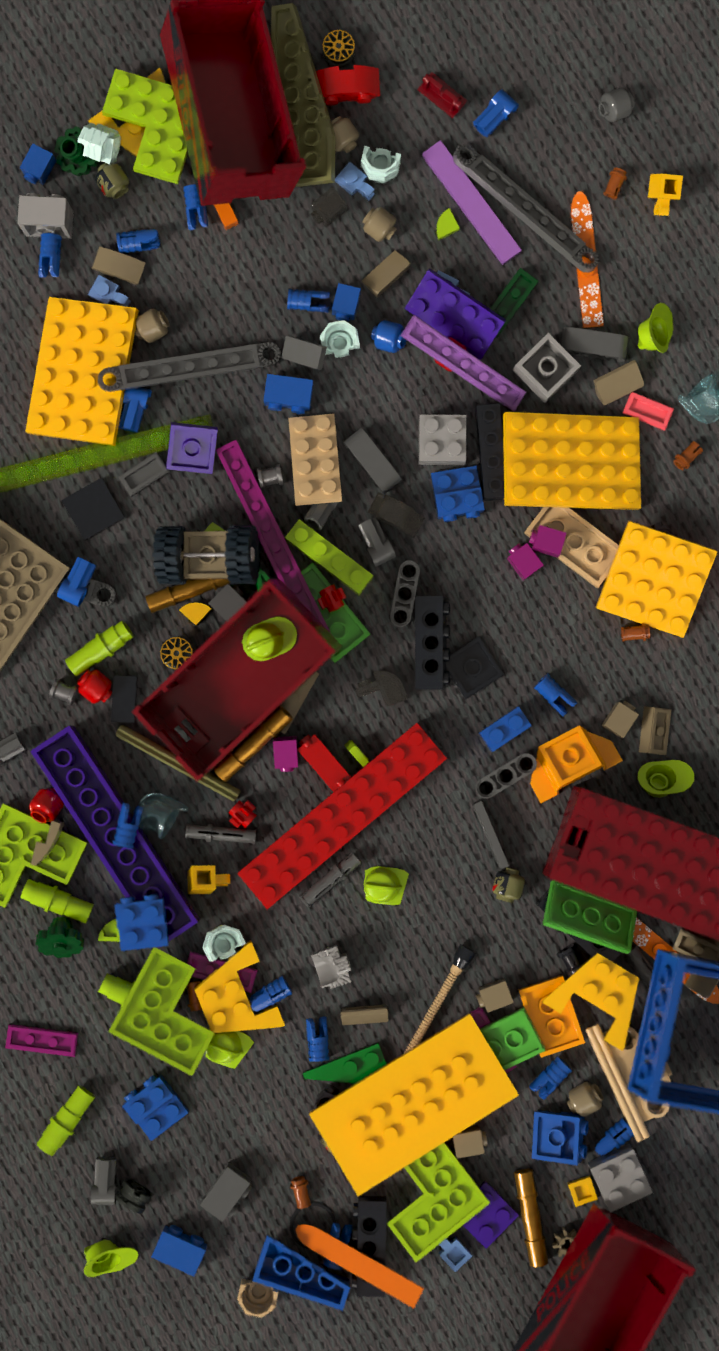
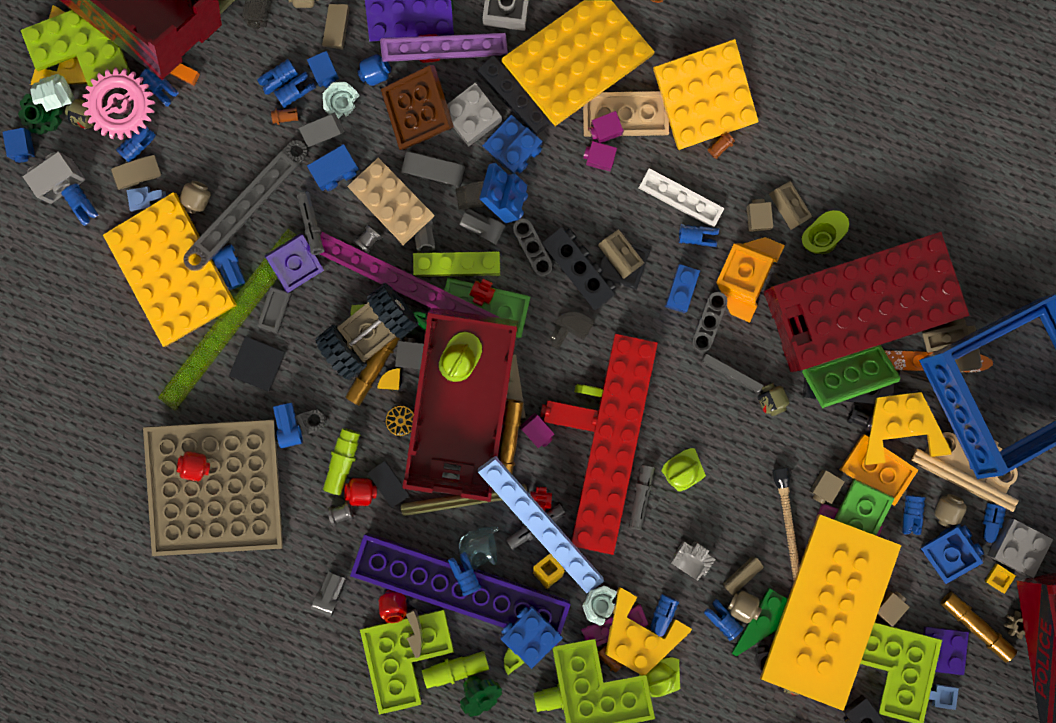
camera: 35 degrees left, 0 degrees up
(126, 192) = (135, 91): none -> bright pink gear
(225, 834) = (540, 524): none -> light blue plate
(228, 433) = (312, 230): none -> dark grey pin
(282, 315) = (284, 115): none -> dark orange pin
(302, 278) = (277, 77): none -> blue hinge
(344, 1042) = (745, 607): none -> dark tan head
(400, 397) = (417, 107): none -> reddish brown plate
(415, 528) = (504, 193): none -> blue plate
(476, 658) = (621, 254): none -> dark tan slope
(565, 651) = (681, 198): none -> white plate

